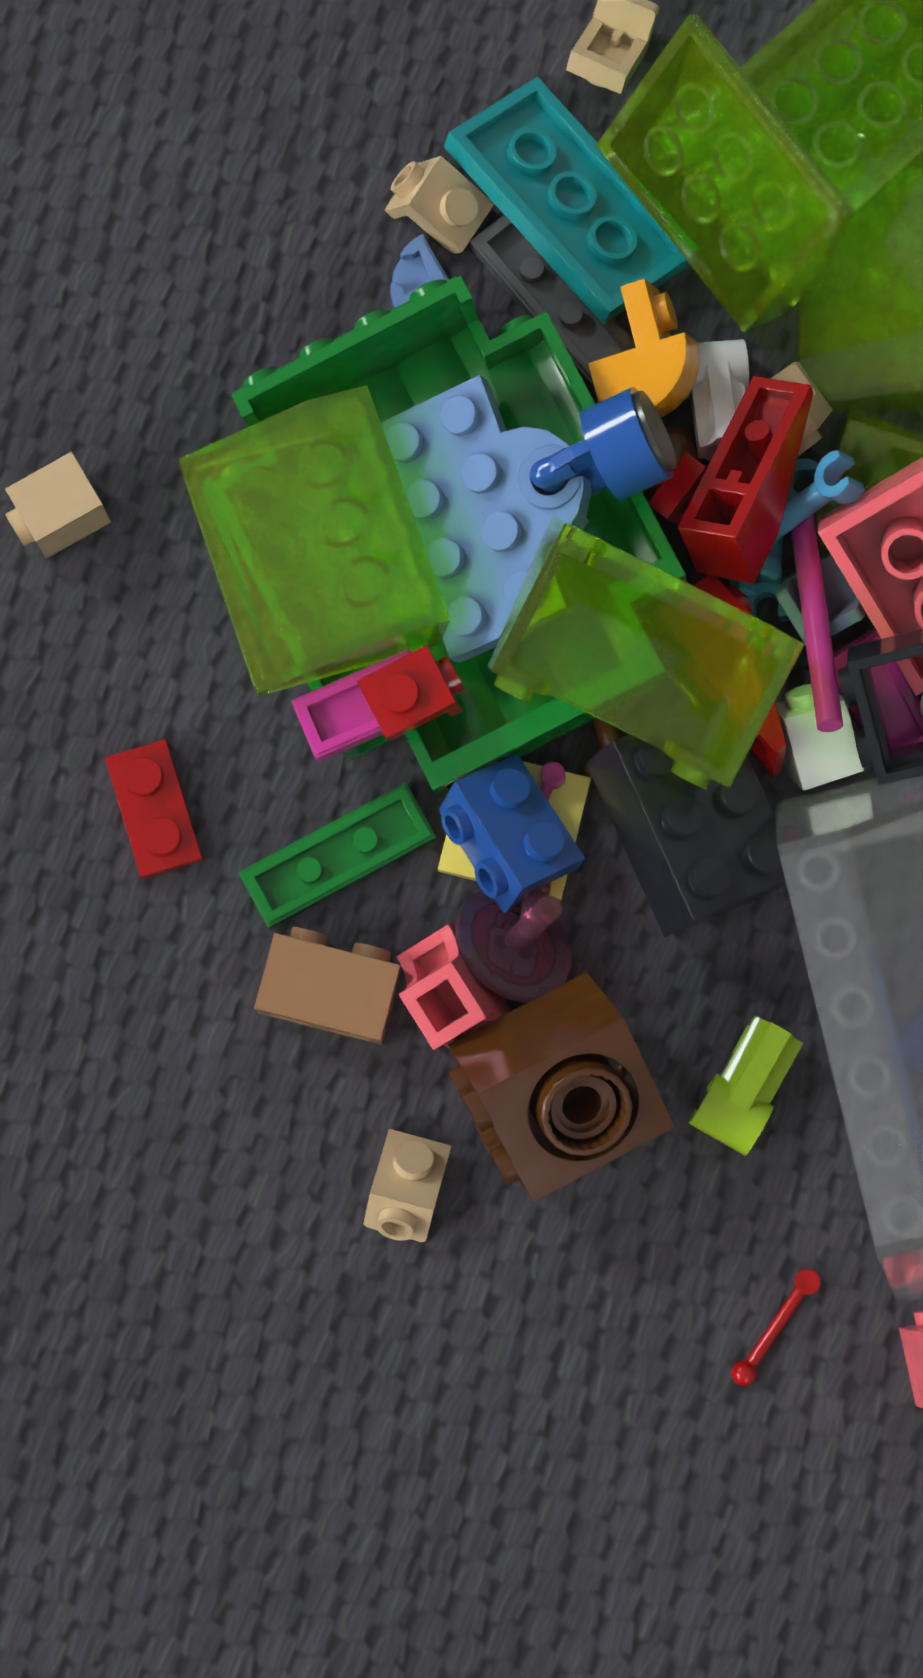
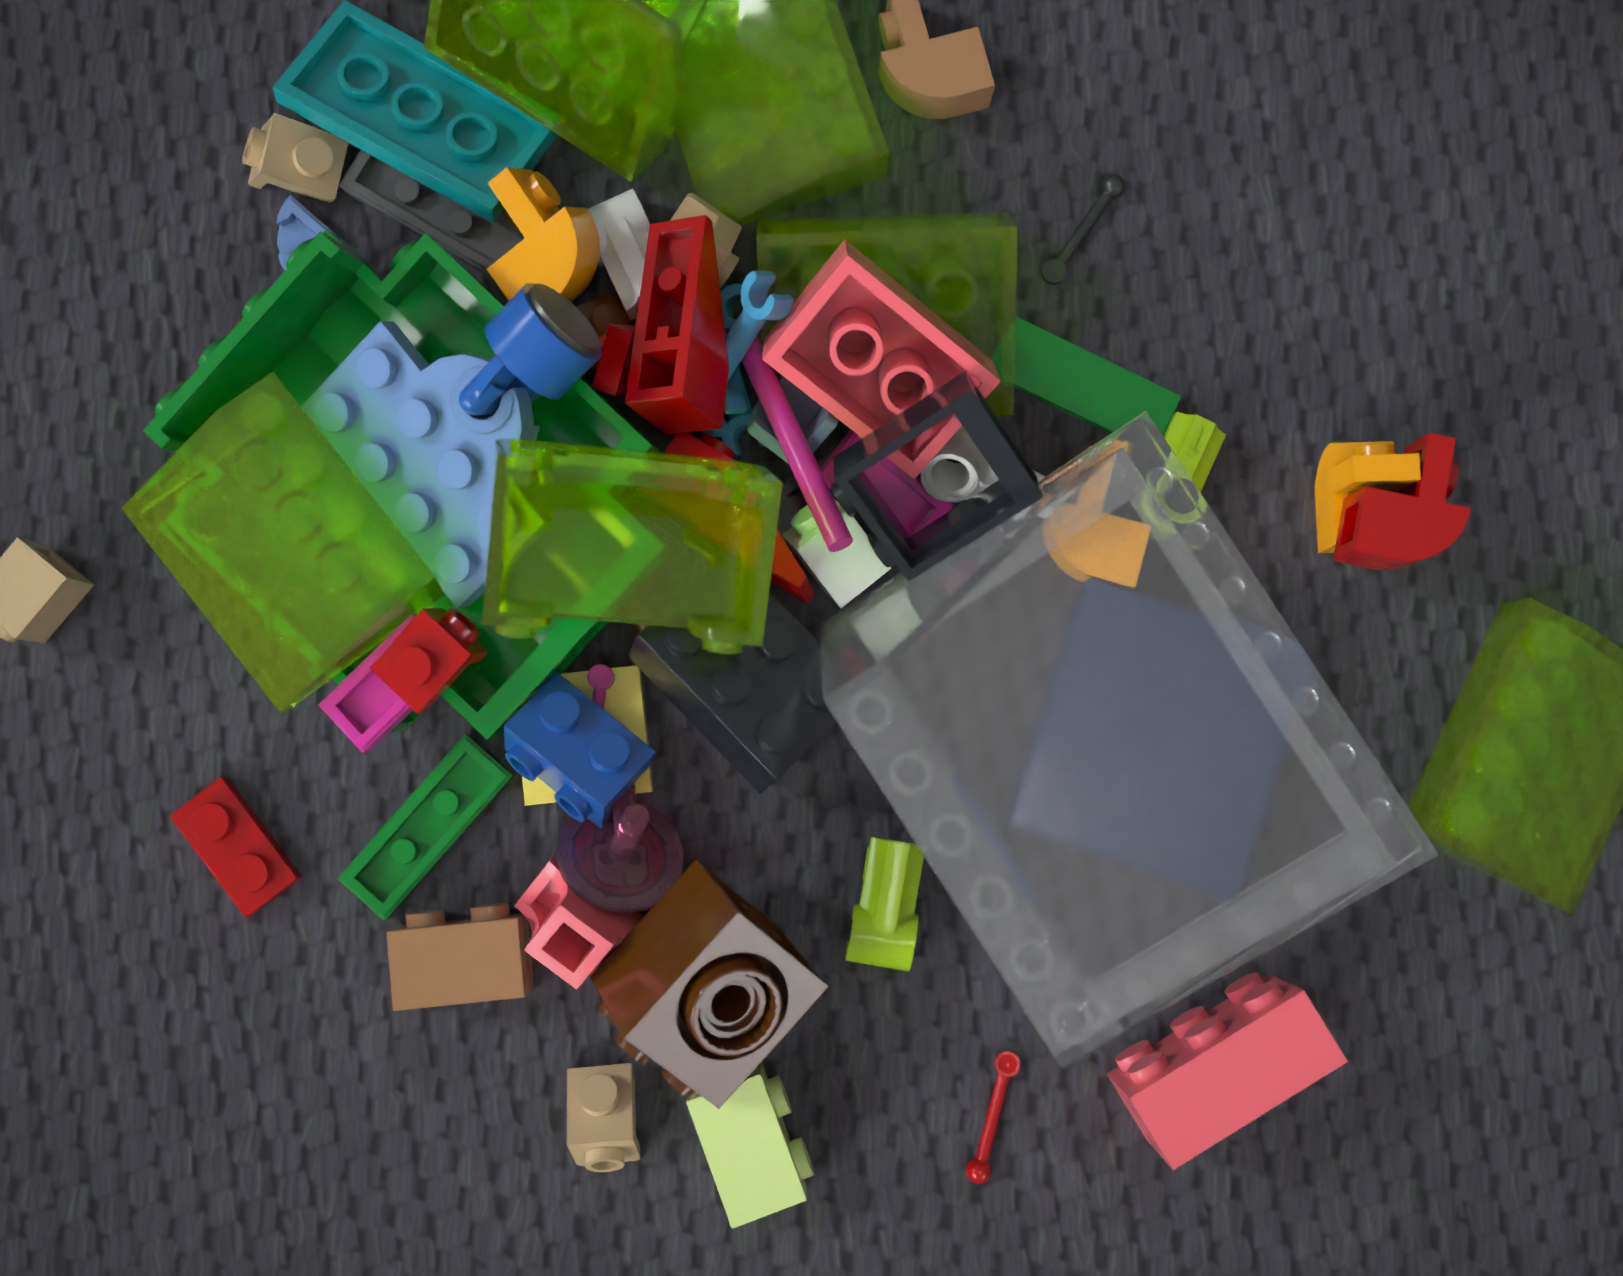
camera: 20 degrees left, 5 degrees up
(538, 1261) = (751, 1150): none -> yellowish green brick

